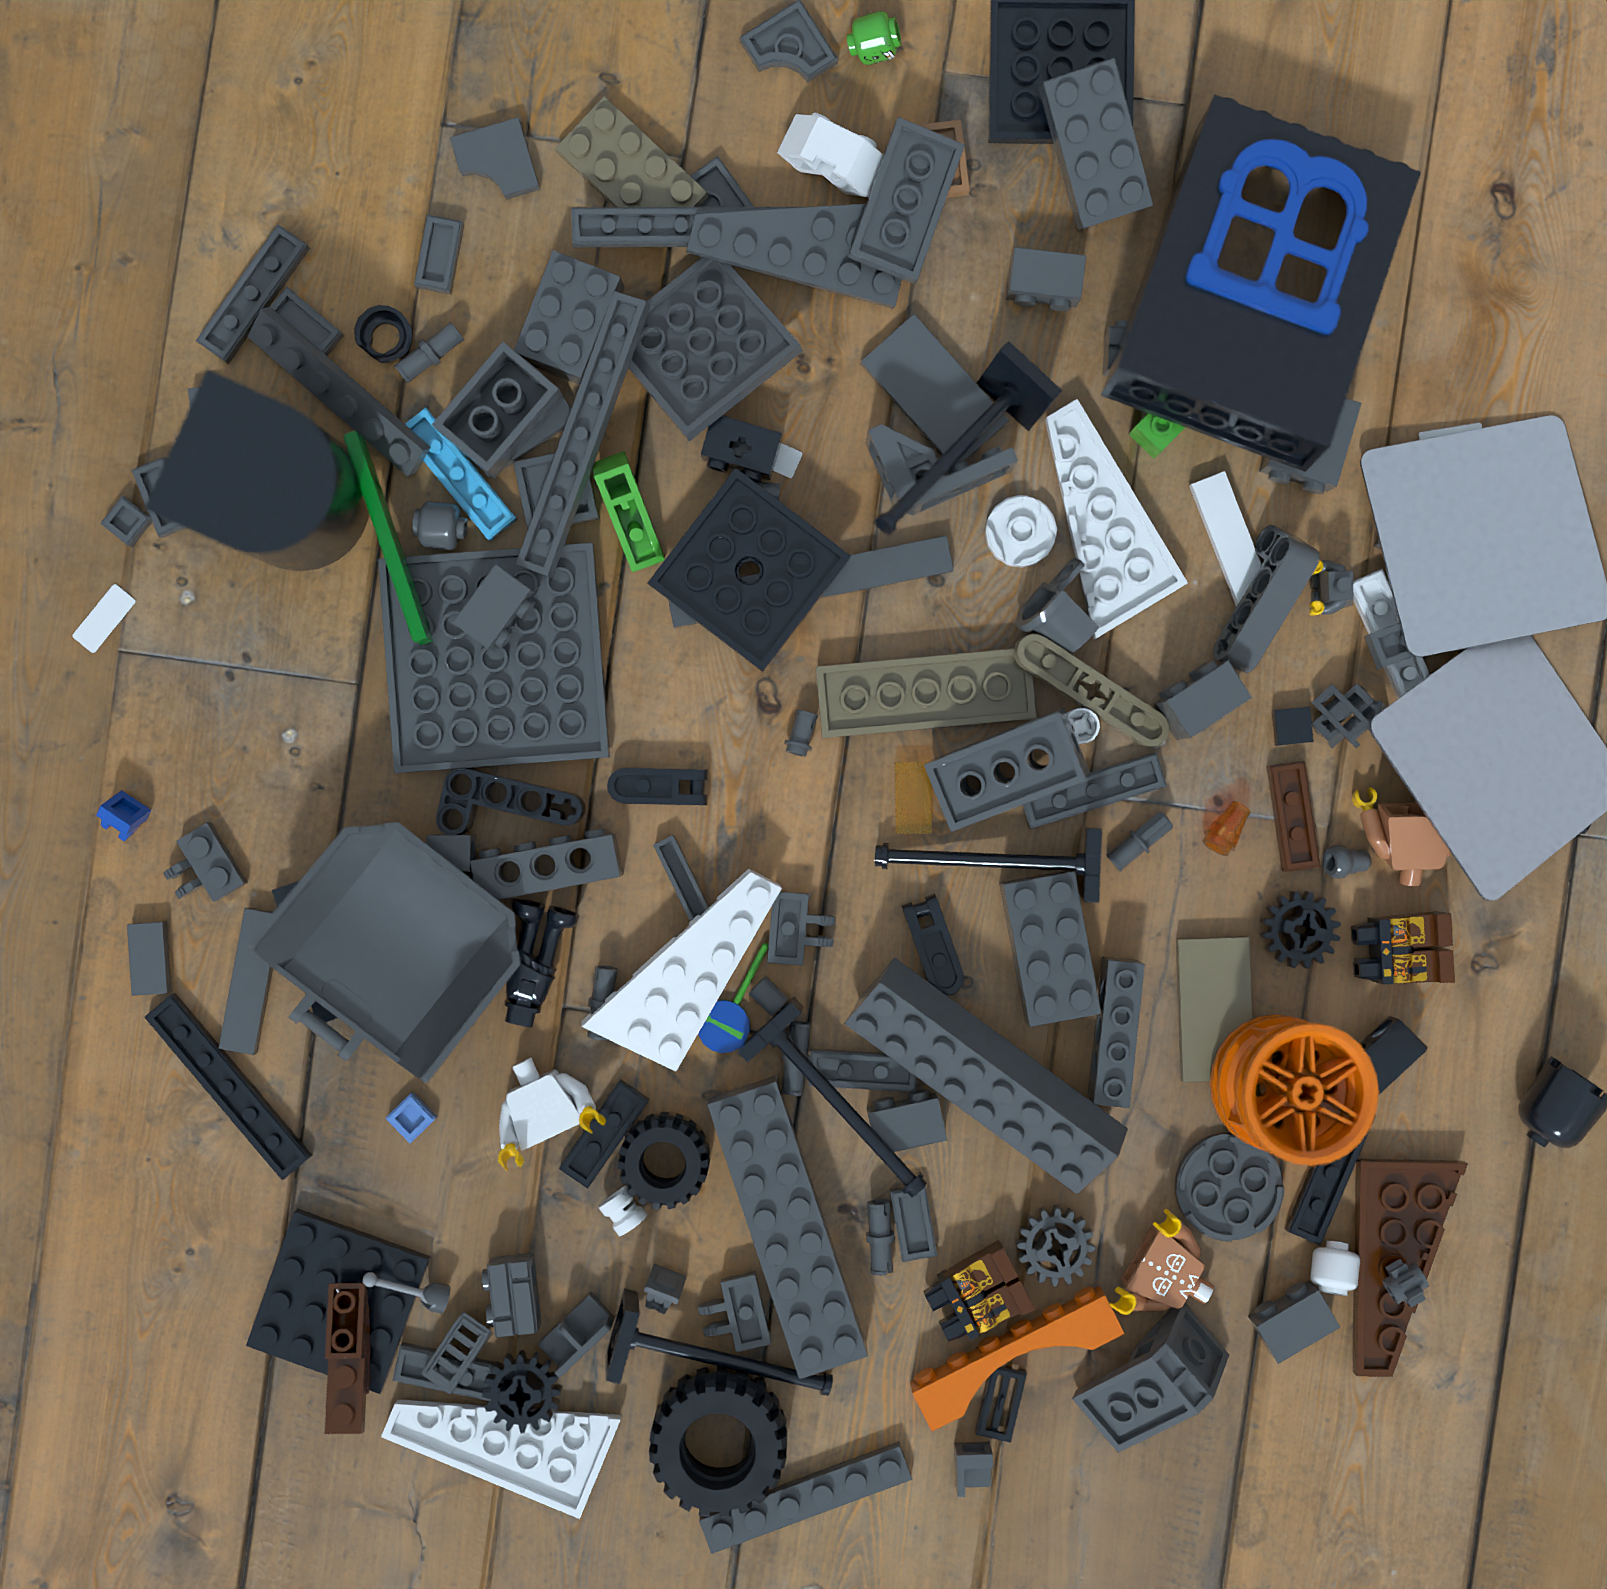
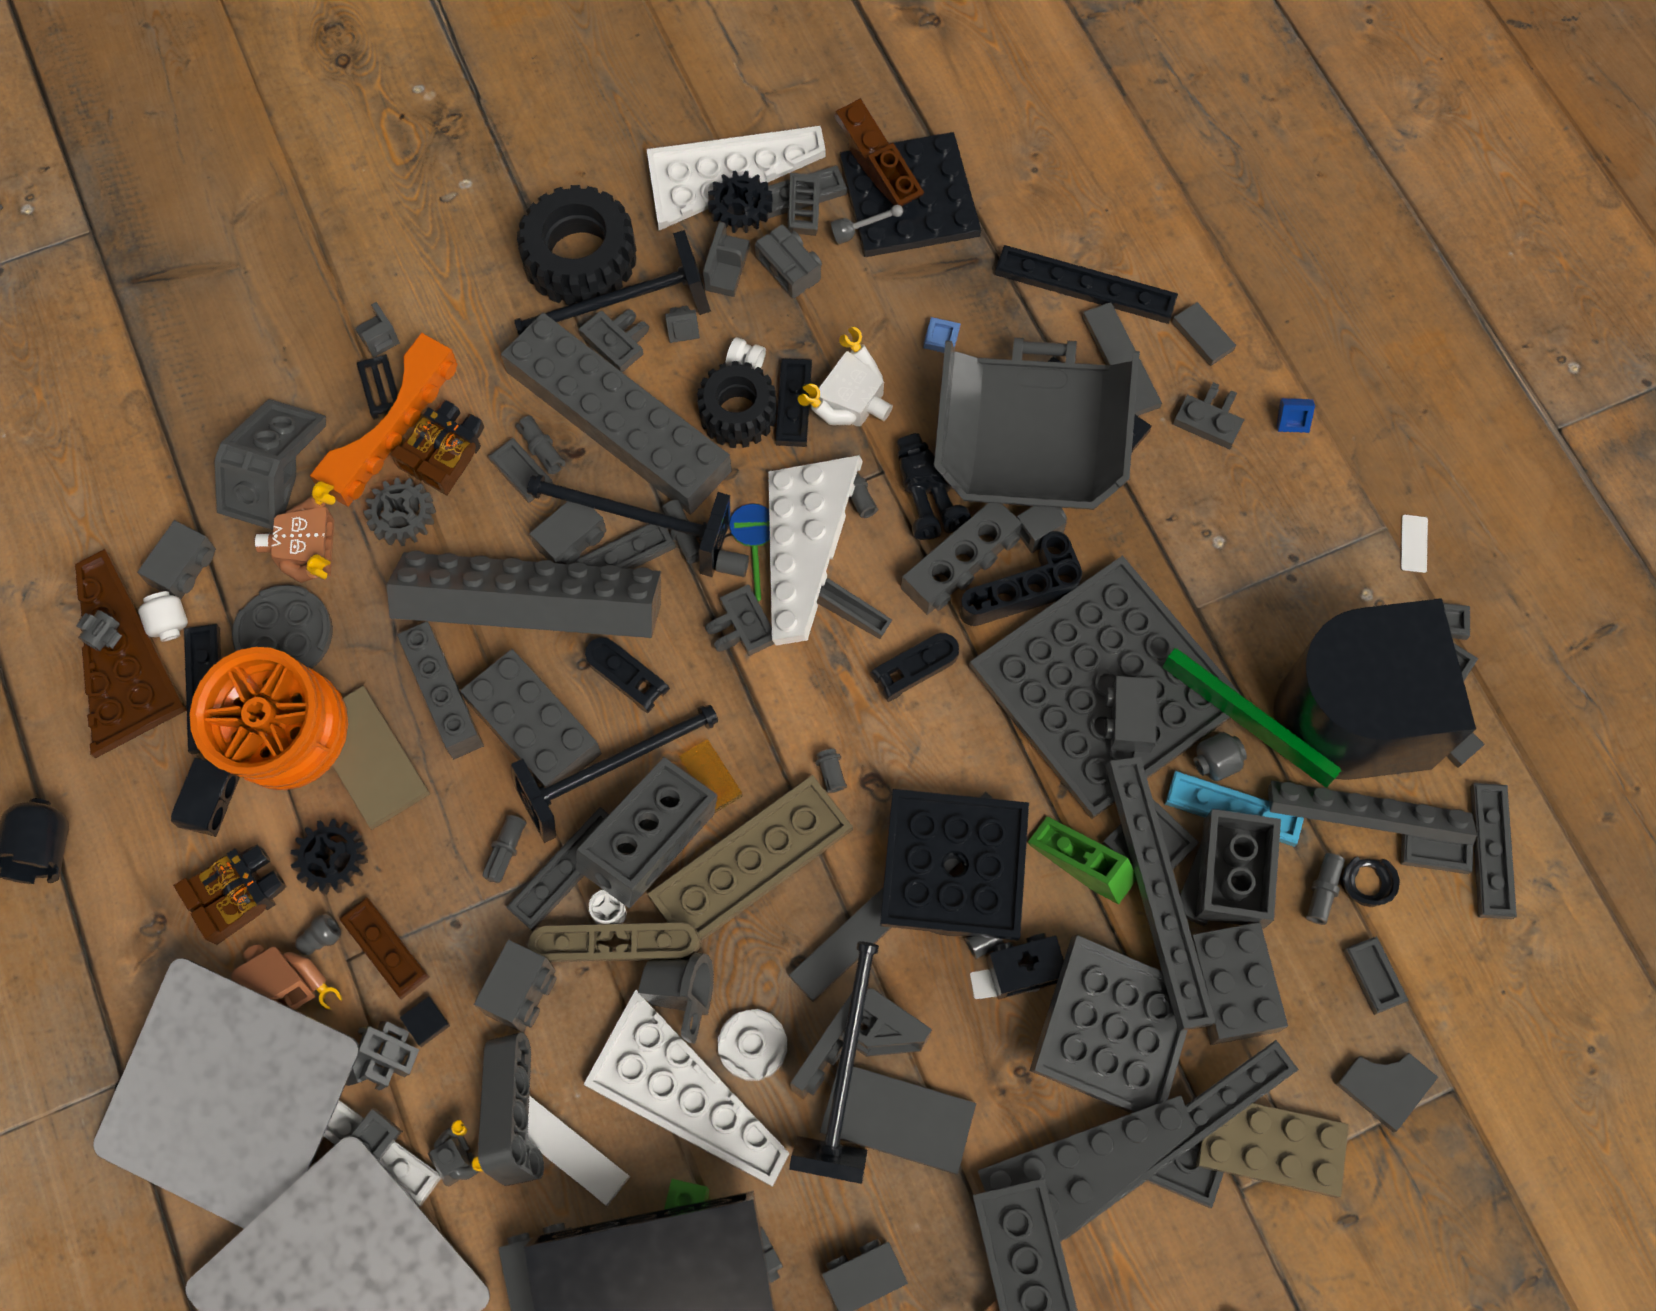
camera: 150 degrees right, 20 degrees down
(809, 1497) = (480, 257): dark grey plate -> none
(829, 150) = (1118, 1268): white brick -> none
(1226, 830) = (435, 901): clear orange cone -> none

